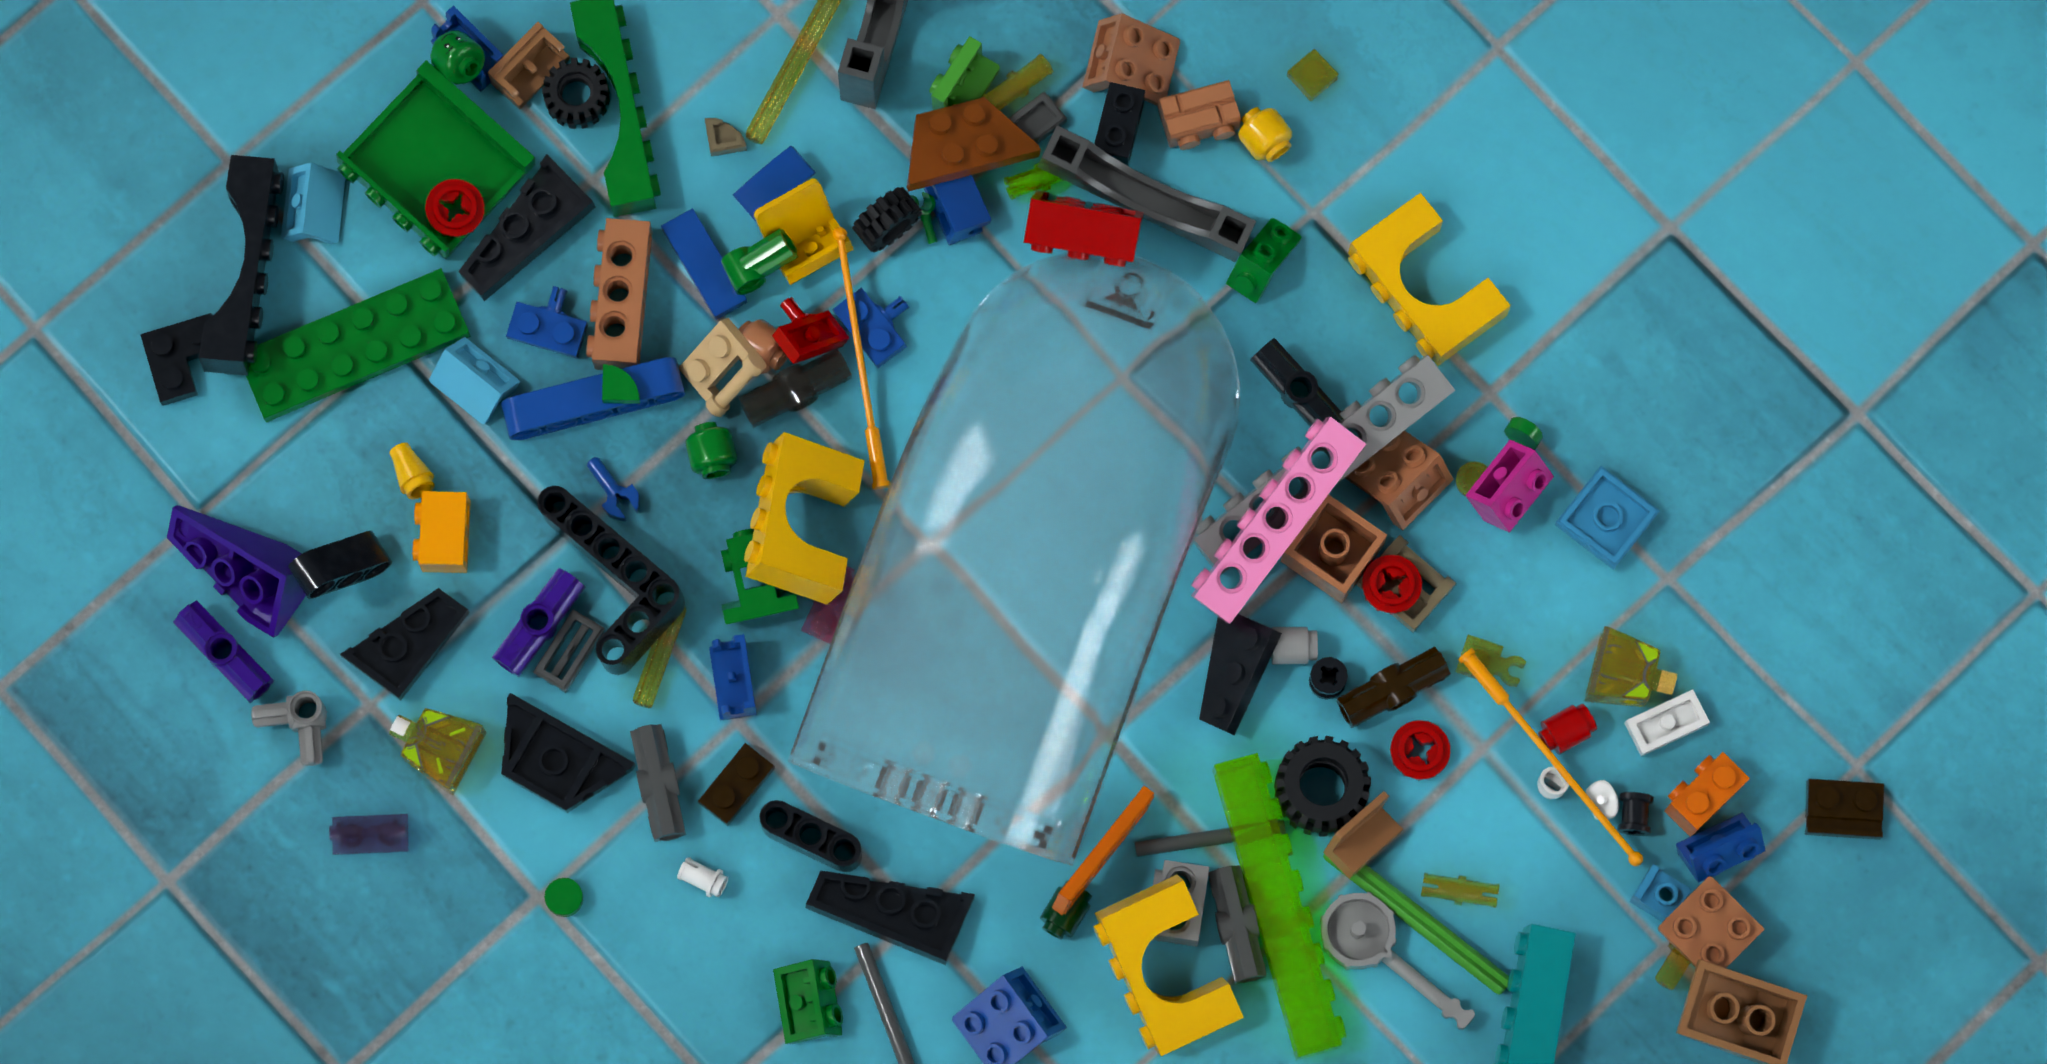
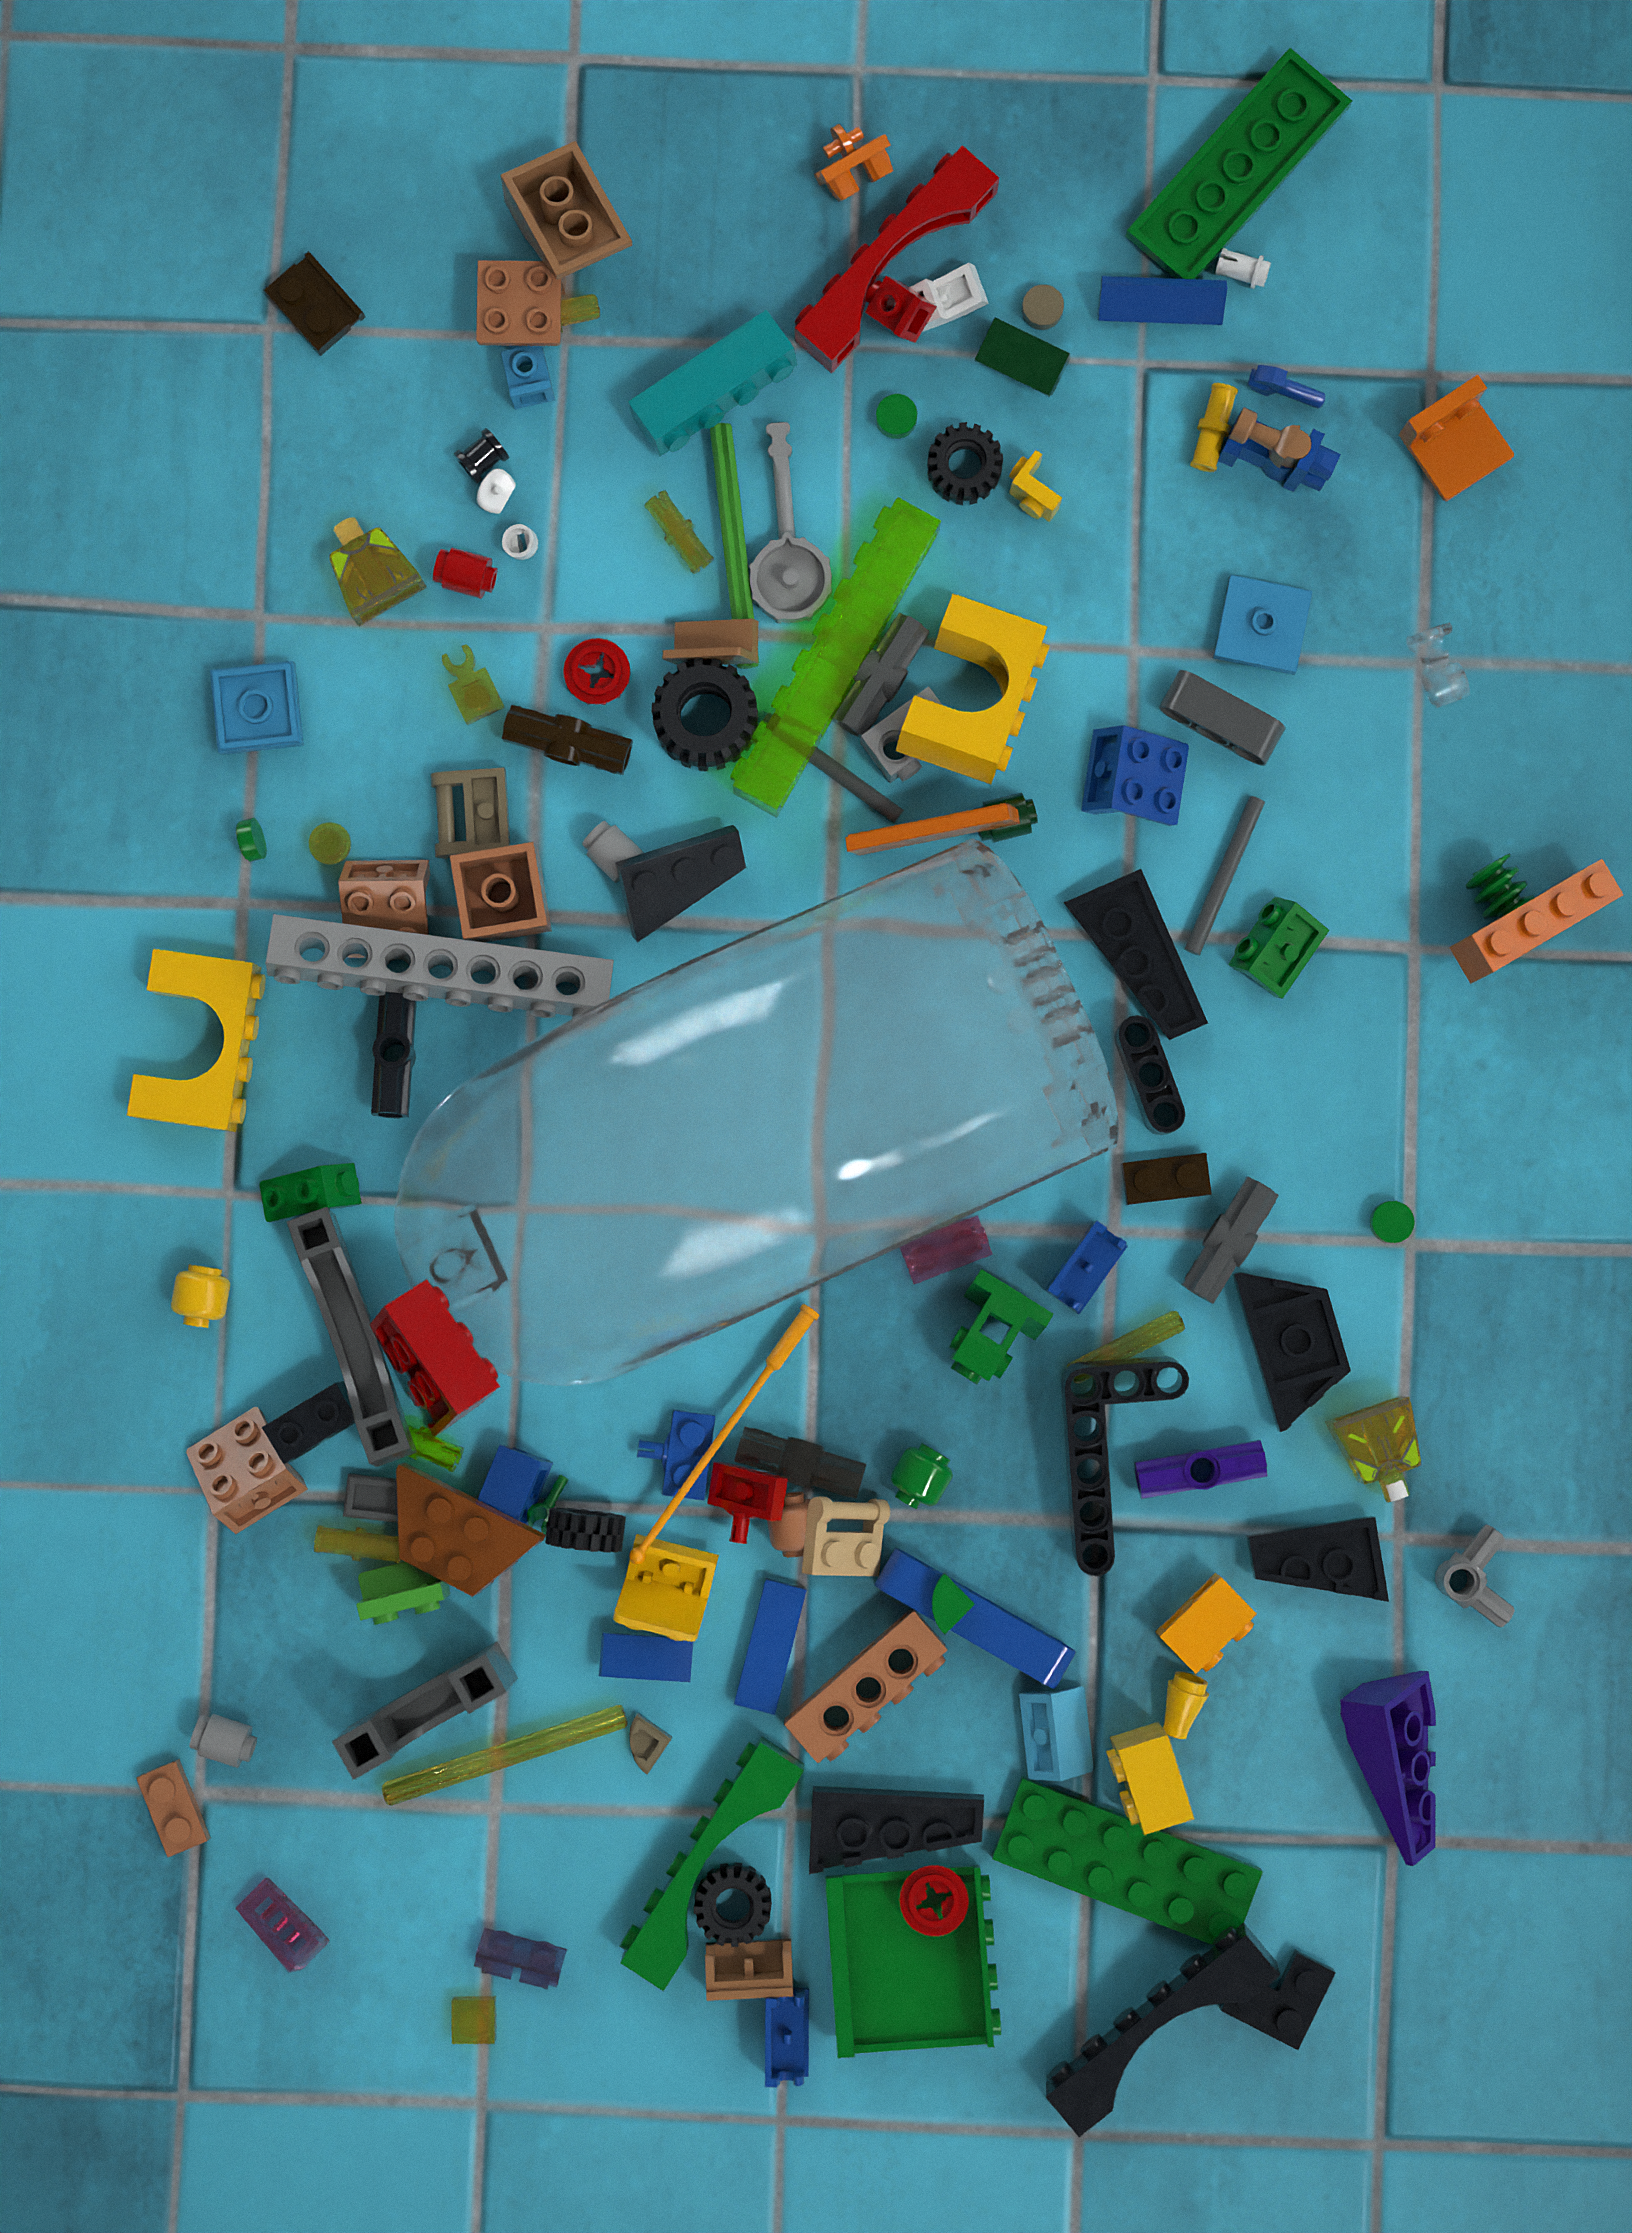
camera: 130 degrees left, 10 degrees up
(207, 636) = (1484, 1726): dark purple piece -> none
(313, 204) = (1046, 2024): medium azure panel -> none
(339, 564) = (1323, 1676): black beam -> none
(369, 834) = (1500, 1427): clear purple hinge -> none
(390, 402) = (1151, 1778): none -> yellow brick
(457, 57) = (807, 2034): green head -> none
(548, 326) = (951, 1719): blue plate -> none
(553, 677) = (1160, 1431): dark grey tile -> none
(613, 490) = (1031, 1524): blue bar -> none
(703, 877) = (1266, 1127): white pin -> none
(751, 265) = (736, 1602): green piece -> none
(776, 552) = (961, 1328): yellow arch -> none
(1199, 115) = (236, 1365): nougat brick -> none
(1312, 75) = (109, 1310): clear yellow plate -> none
(1323, 683) = (611, 807): black wheel -> none
(1343, 450) = (544, 935): bright pink brick -> none
(1396, 568) = (475, 801): red gear -> none
(1501, 697) = (492, 644): light orange piece -> none
(1509, 486) = (308, 804): dark pink brick -> none
(1667, 722) = (381, 501): white plate -> none
(1701, 799) = (410, 414): orange brick -> none
(1721, 847) = (442, 362): blue bracket -> none

